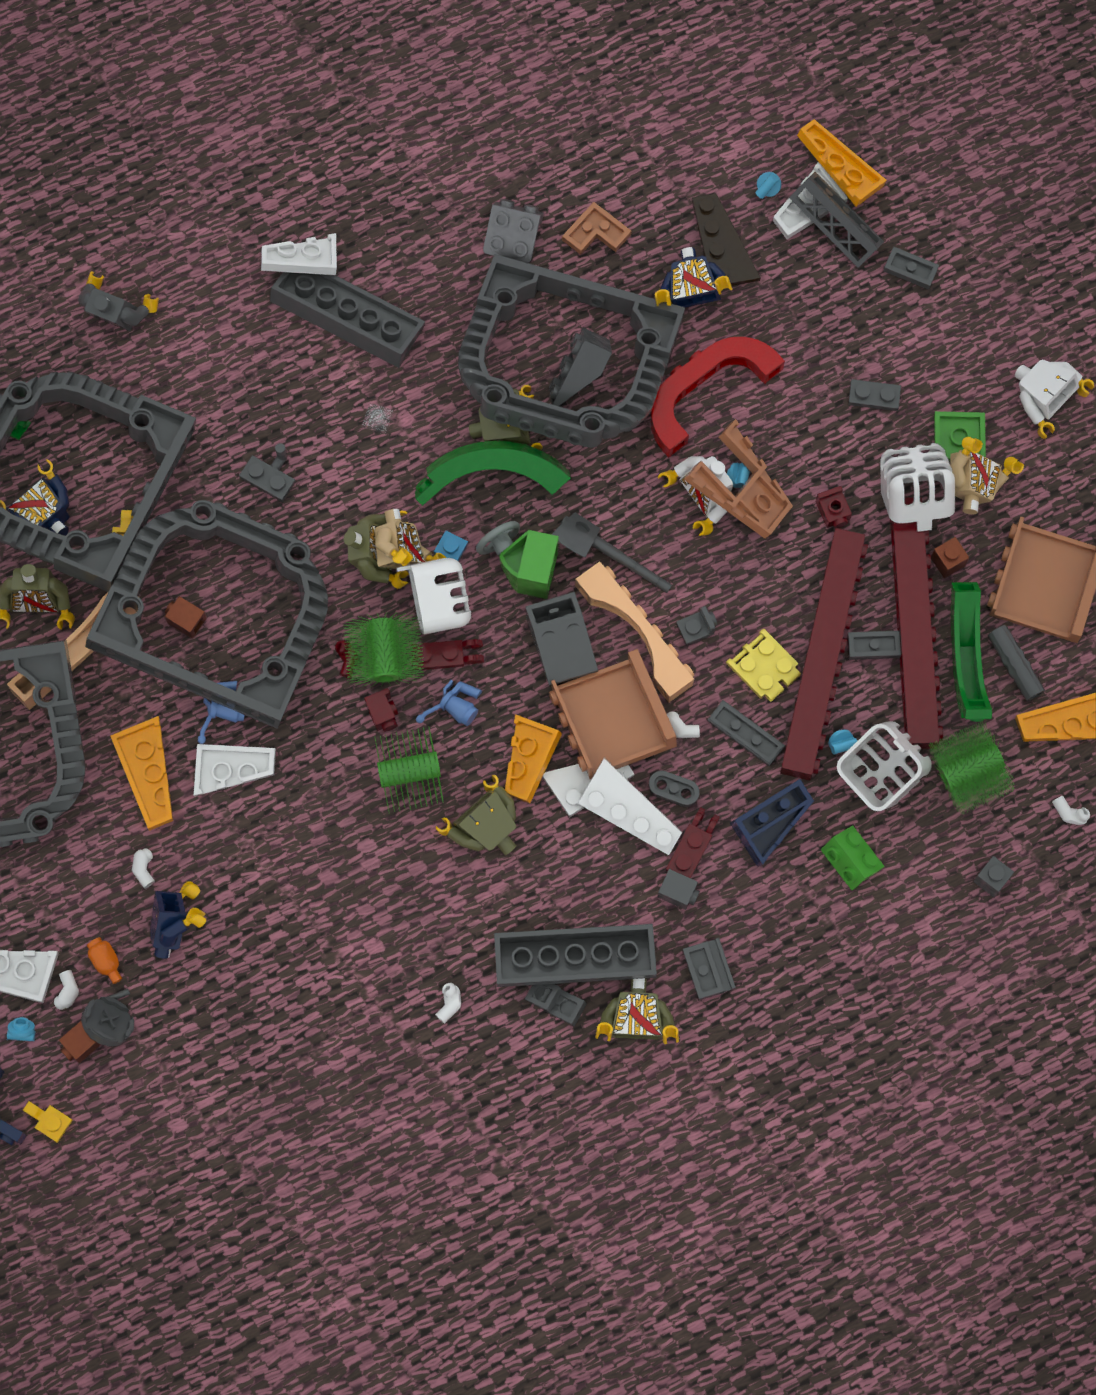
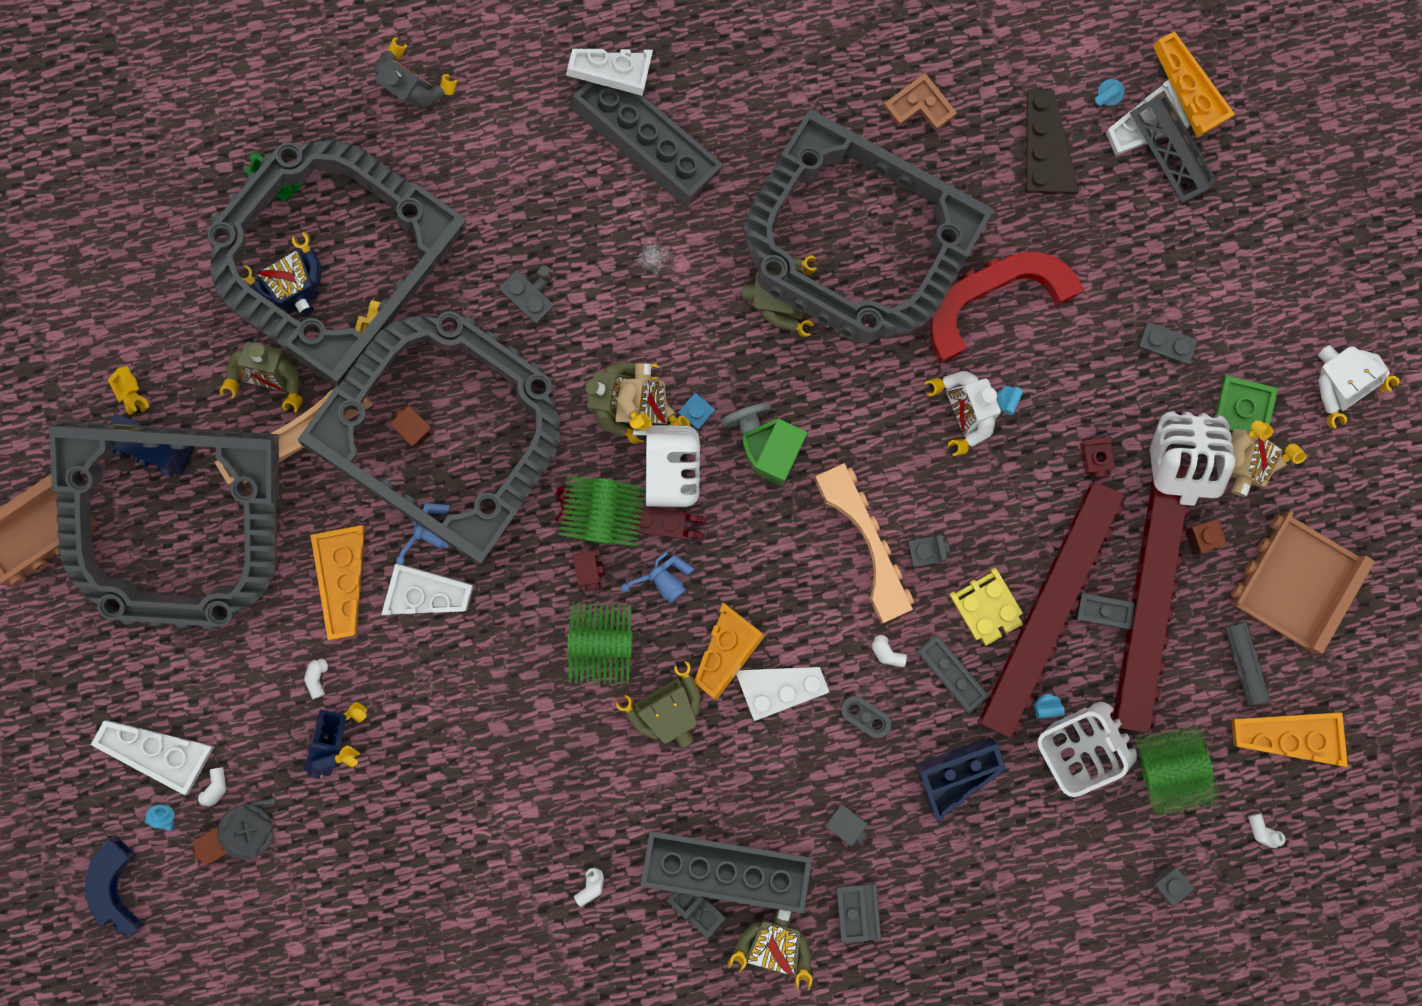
camera: 15 degrees right, 10 degrees up
(51, 1122) = (170, 917): yellow plate -> none
(104, 959) = (256, 764): orange plant -> none
(488, 456) = (758, 328): green arch -> none
(512, 230) = (834, 86): flat silver bracket -> none
(561, 638) = (787, 536): dark grey slope -> none
(579, 536) = (830, 429): dark grey piece -> none
(582, 366) = (872, 252): dark grey slope -> none
(614, 715) = (821, 628): nougat panel -> none
(622, 804) = (808, 723): white wing -> none
(692, 281) = (1008, 182): torso -> none
(692, 845) = (870, 781): dark red hinge -> none
(760, 500) = (1023, 435): nougat wing -> none
(852, 857) = (1031, 830): bright green bracket -> none
(911, 268) = (1238, 215): dark grey plate -> none
(966, 652) = (1197, 648): green arch -> none

